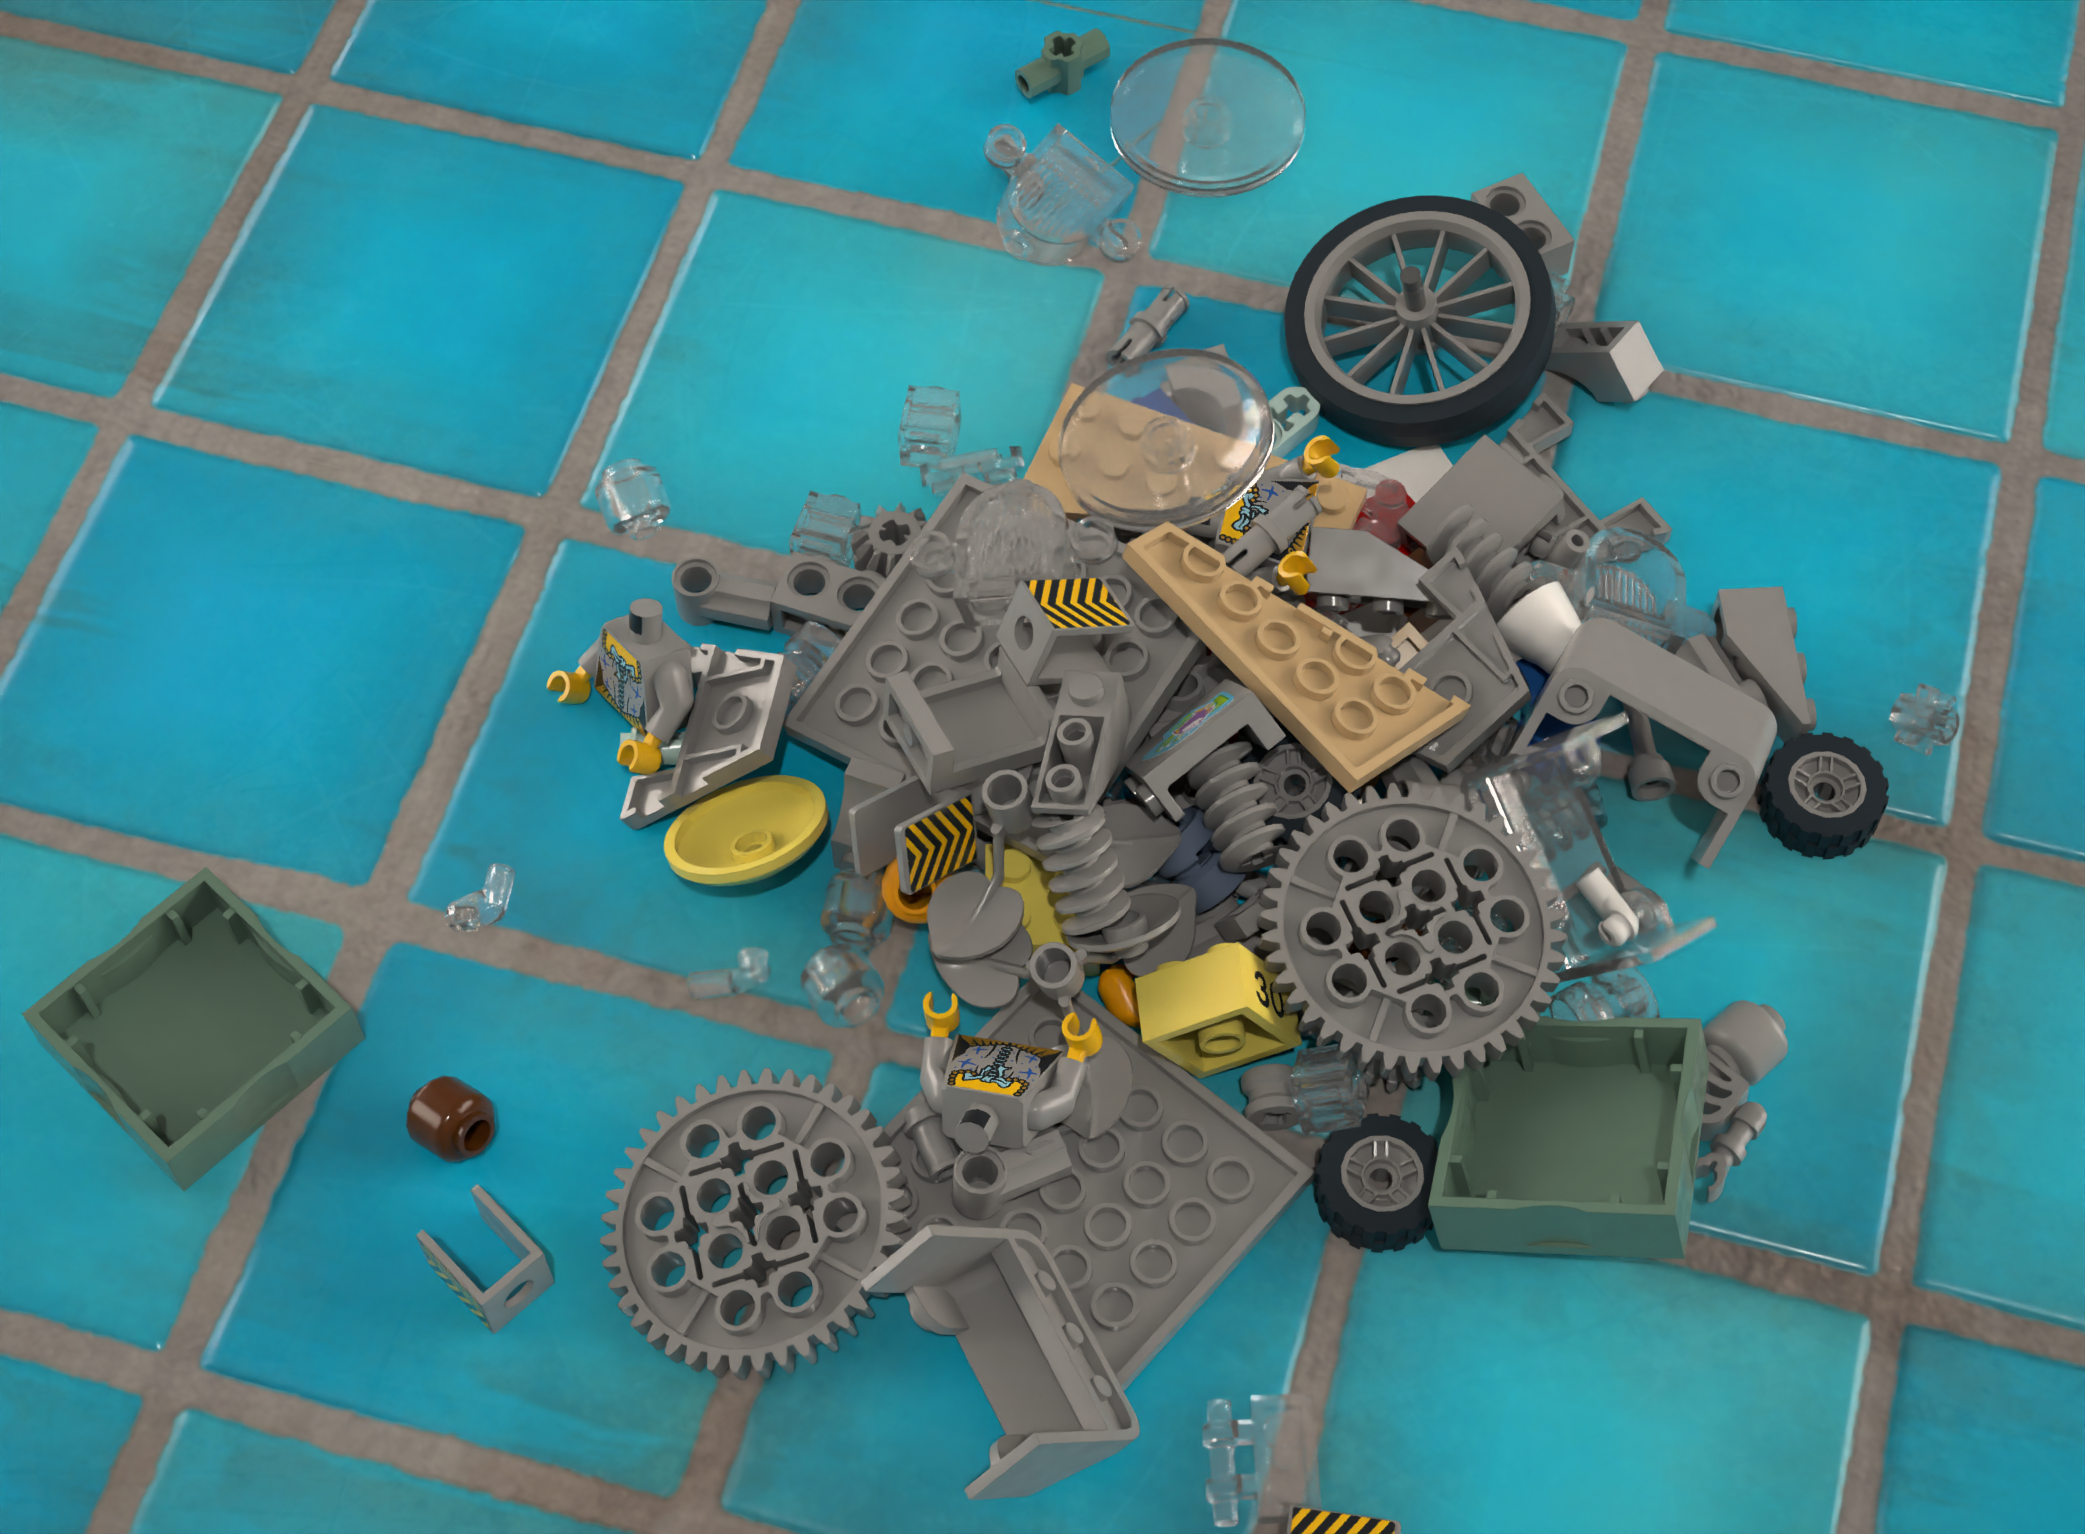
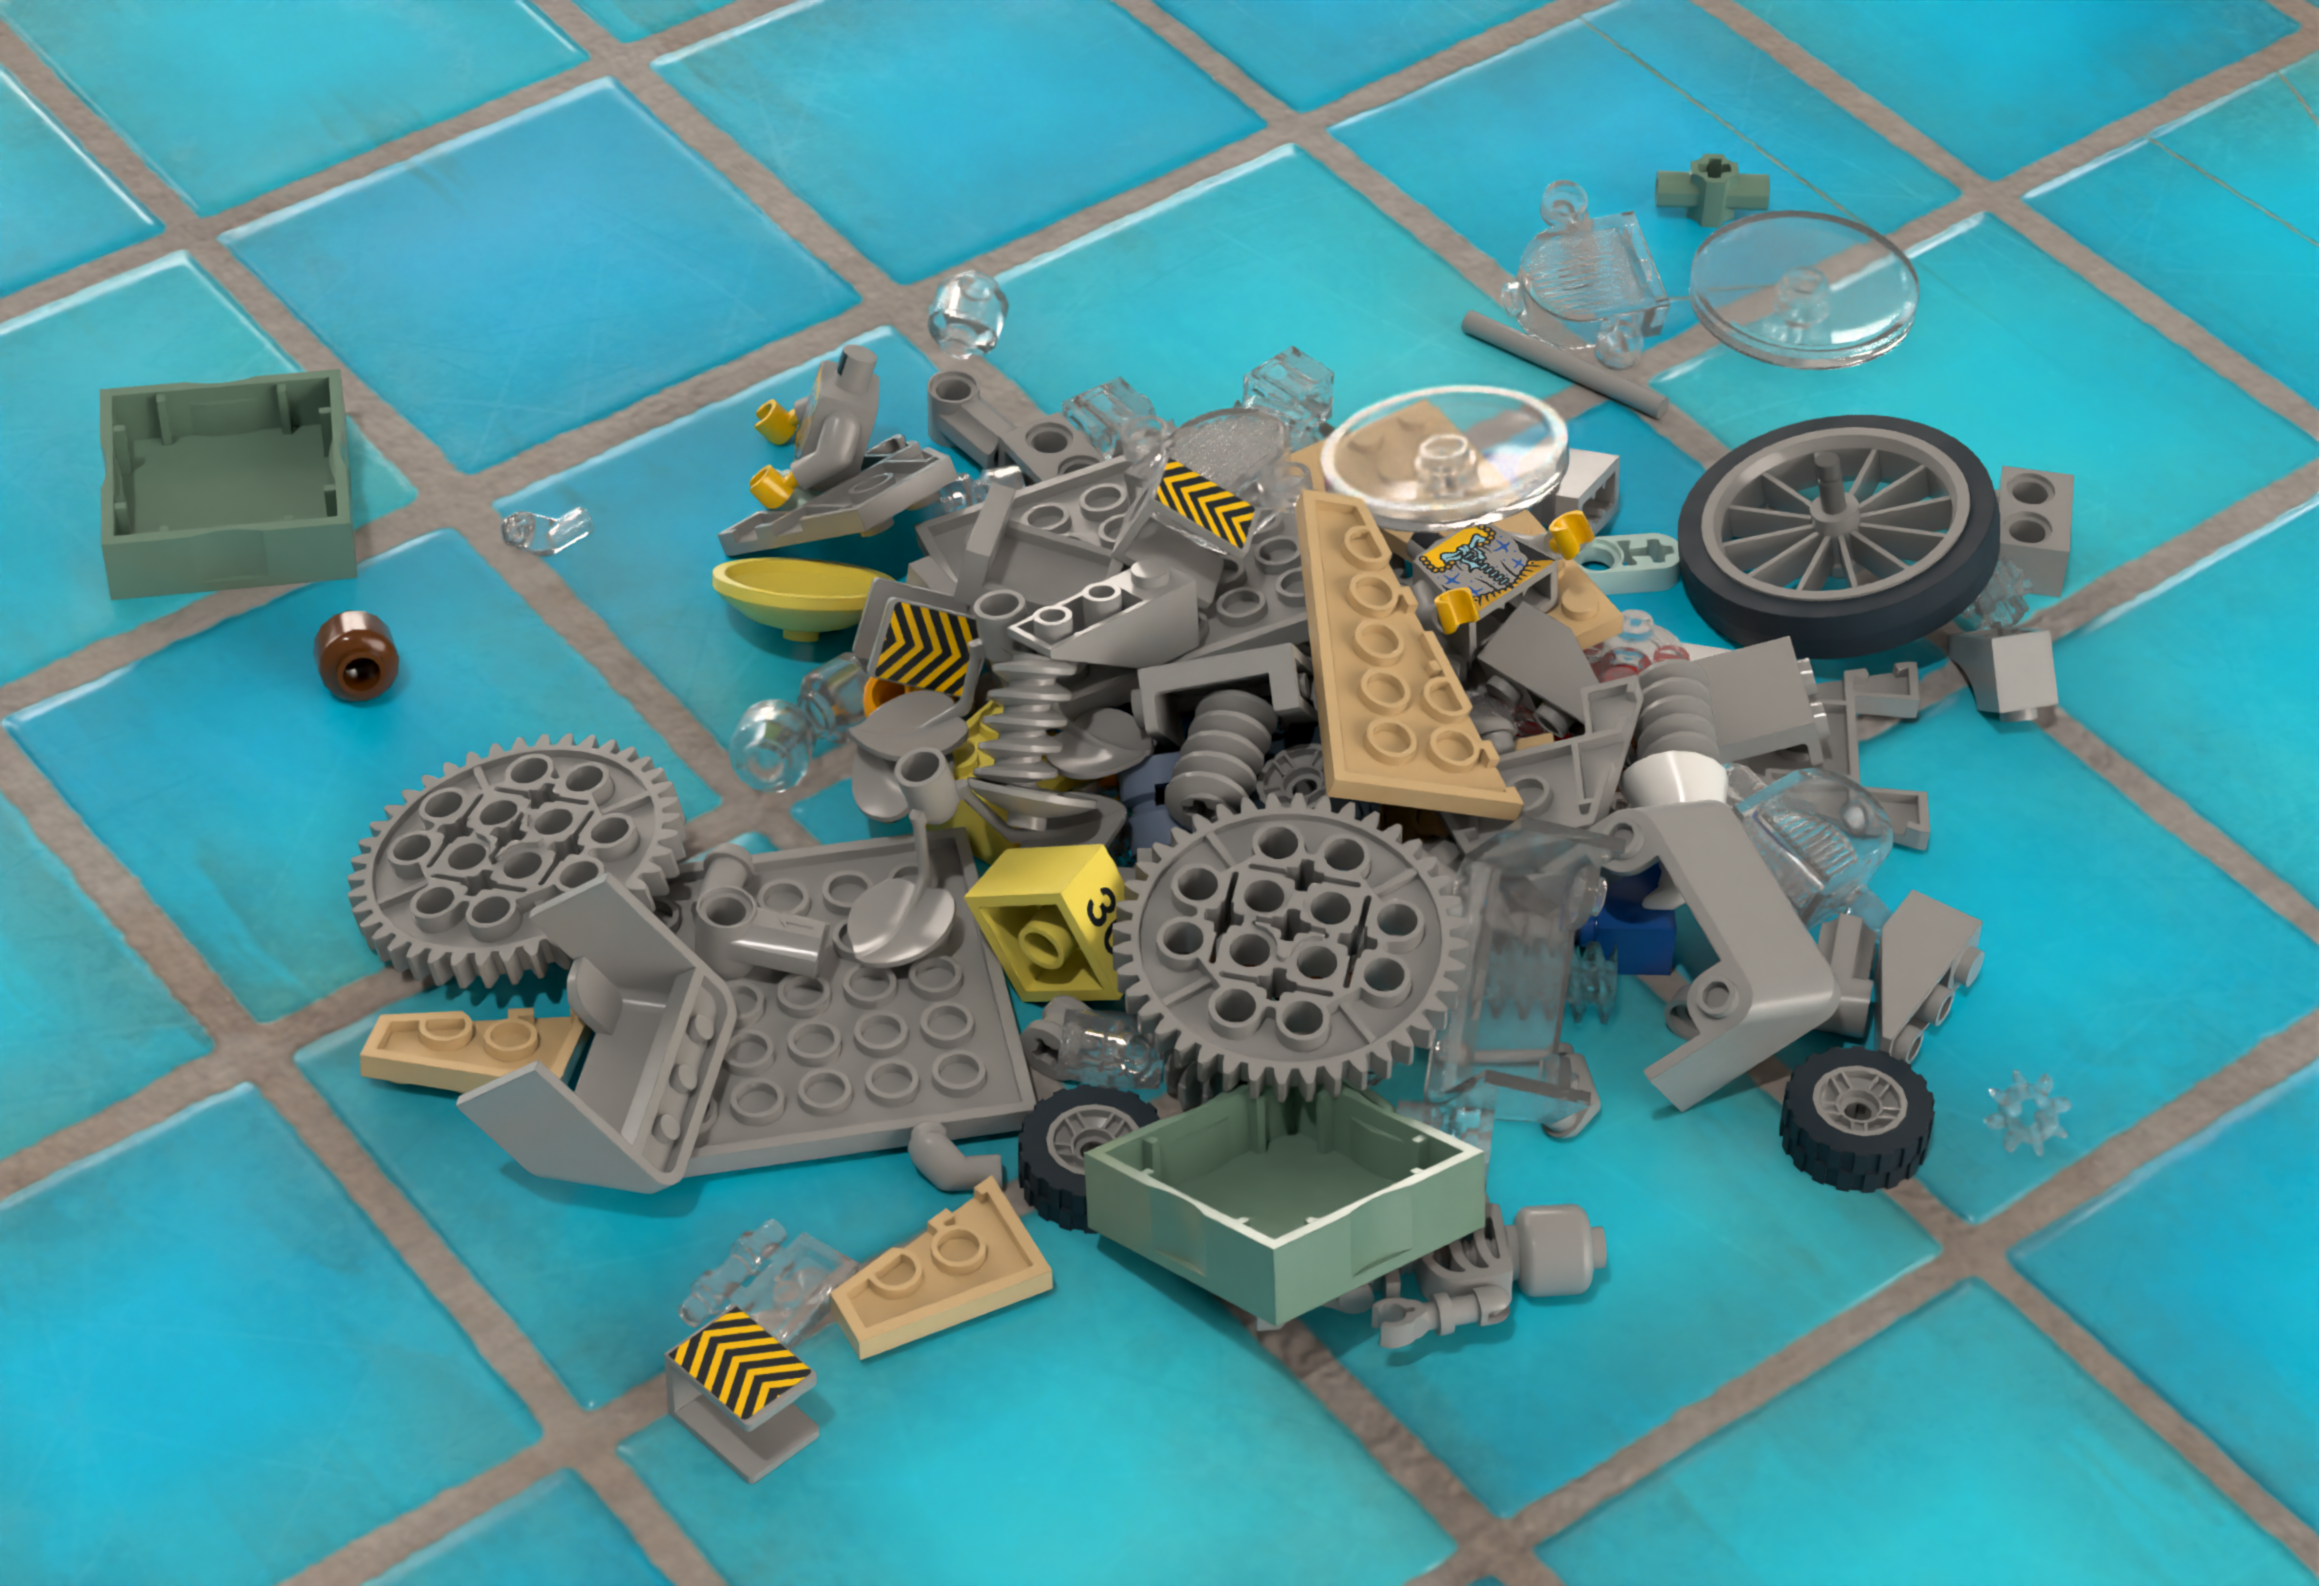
camera: 35 degrees right, 15 degrees down
(491, 1305) = (305, 777): light grey piece -> none
(731, 981) = (690, 696): clear arm -> none
(879, 1406) = (464, 1054): none -> tan wing
(1000, 1088) = (807, 863): light grey torso -> none
(1085, 276) = (1565, 364): none -> light grey bar
(1150, 326) = (1600, 424): light grey pin -> none
(1272, 531) = (1461, 566): light grey pin -> none
(1288, 1261) = (945, 1164): none -> light grey arm
(1369, 1355) = (946, 1276): none -> tan wing
(1560, 550) = (1781, 761): light grey arm -> none
(1618, 919) = (1522, 1046): white arm -> none

